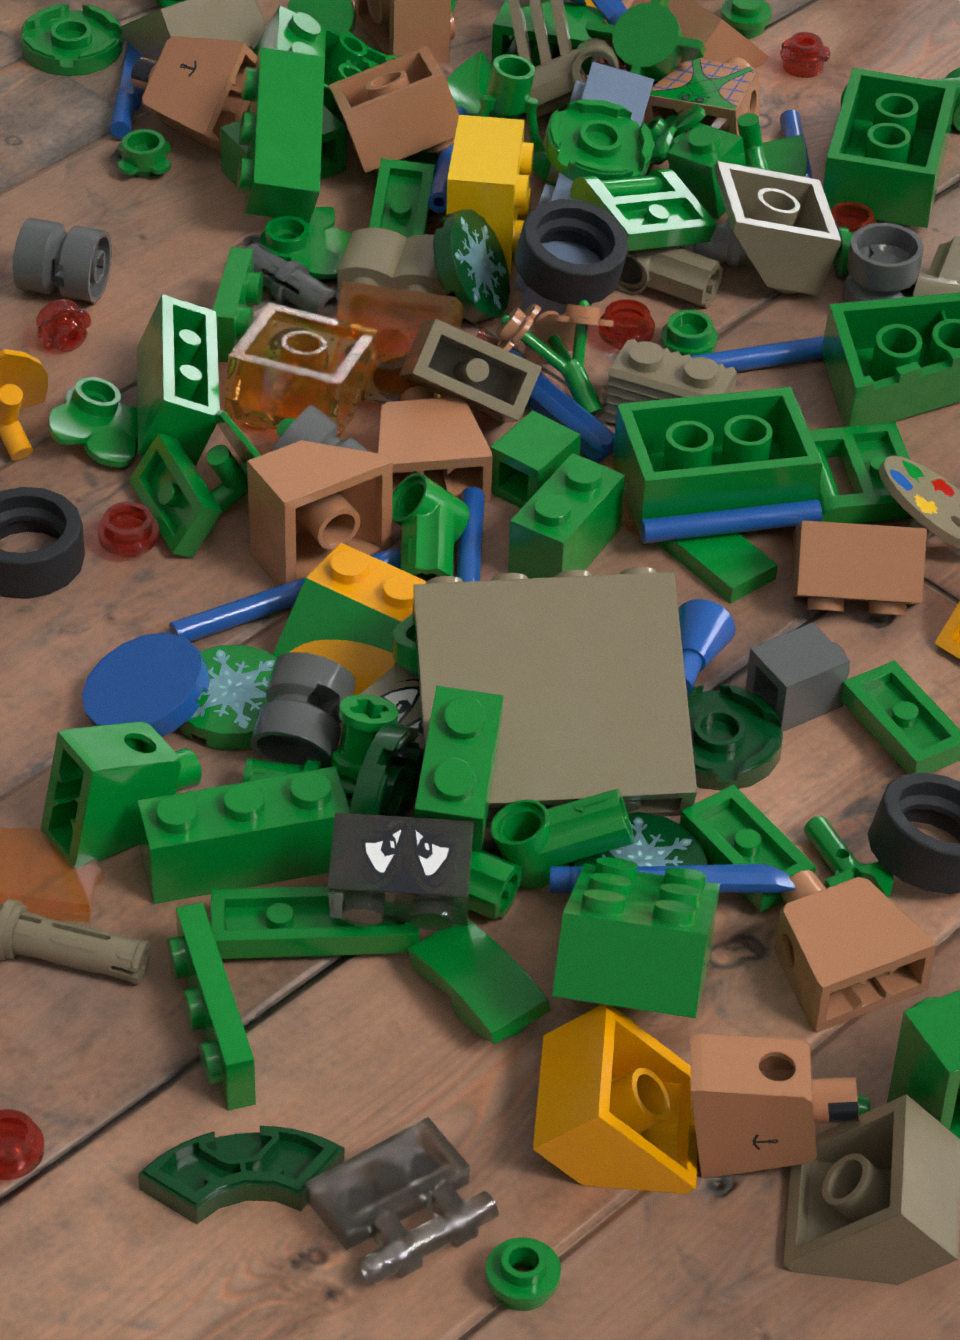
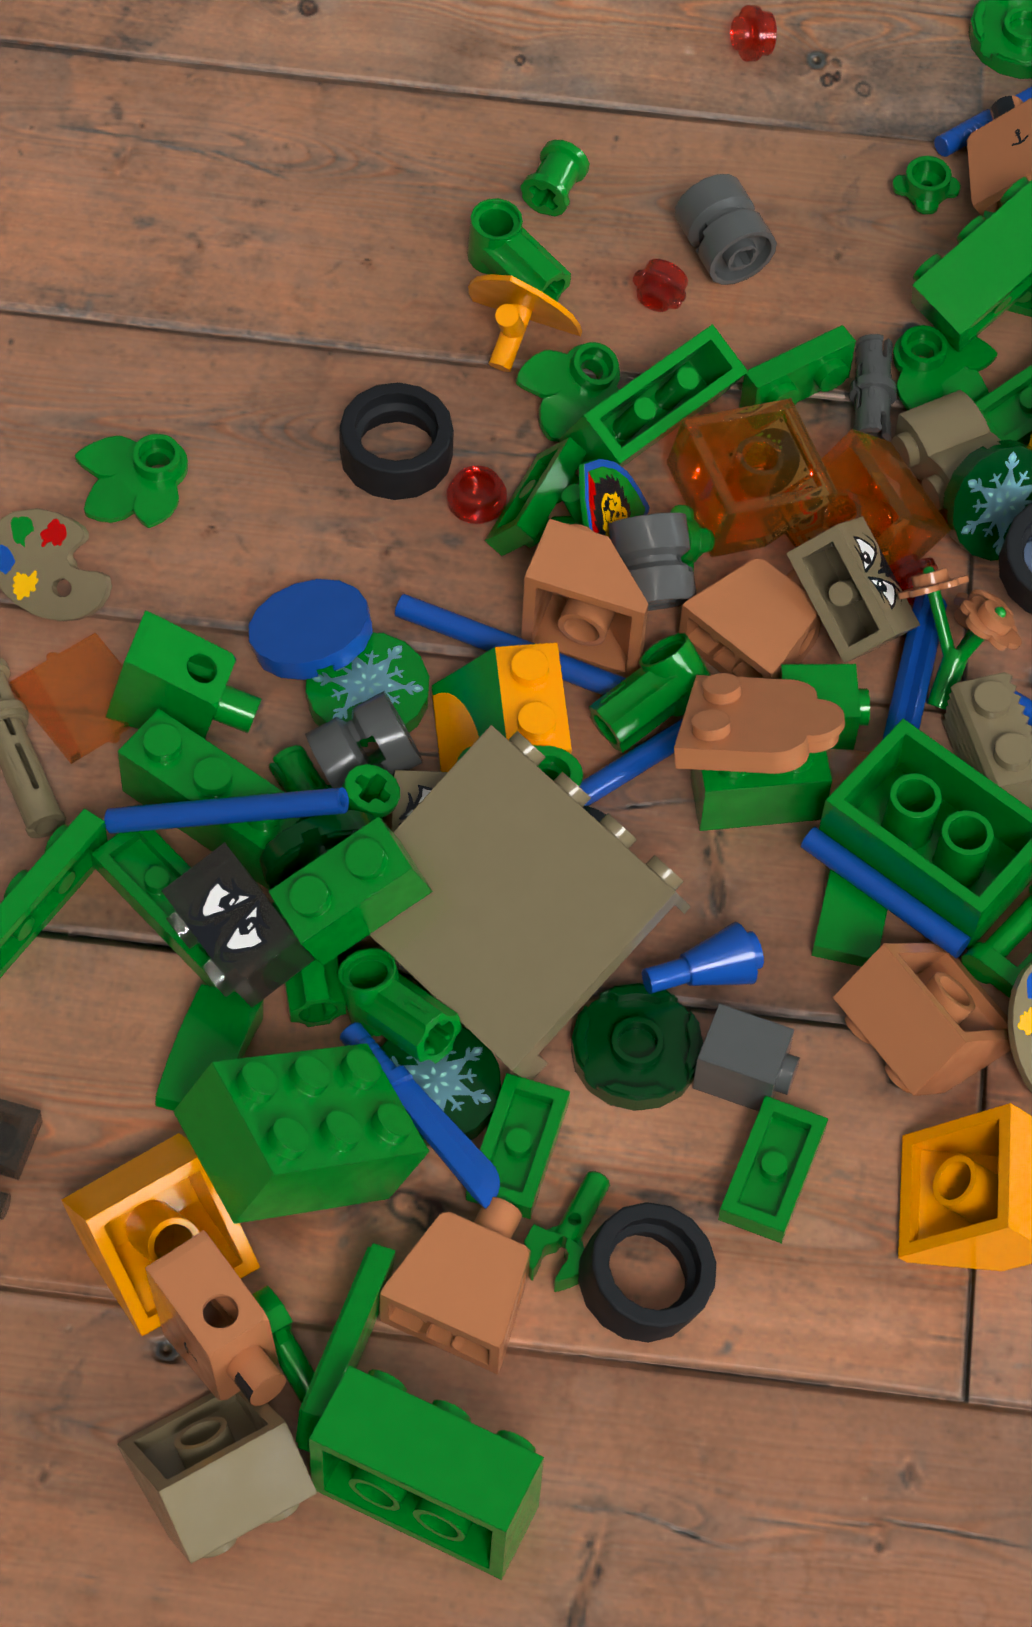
camera: 50 degrees right, 15 degrees up
(292, 806) = (227, 810): none -> blue piece
(539, 476) = (754, 725): none -> nougat plate
(842, 1037) = (347, 1338): none -> green tile

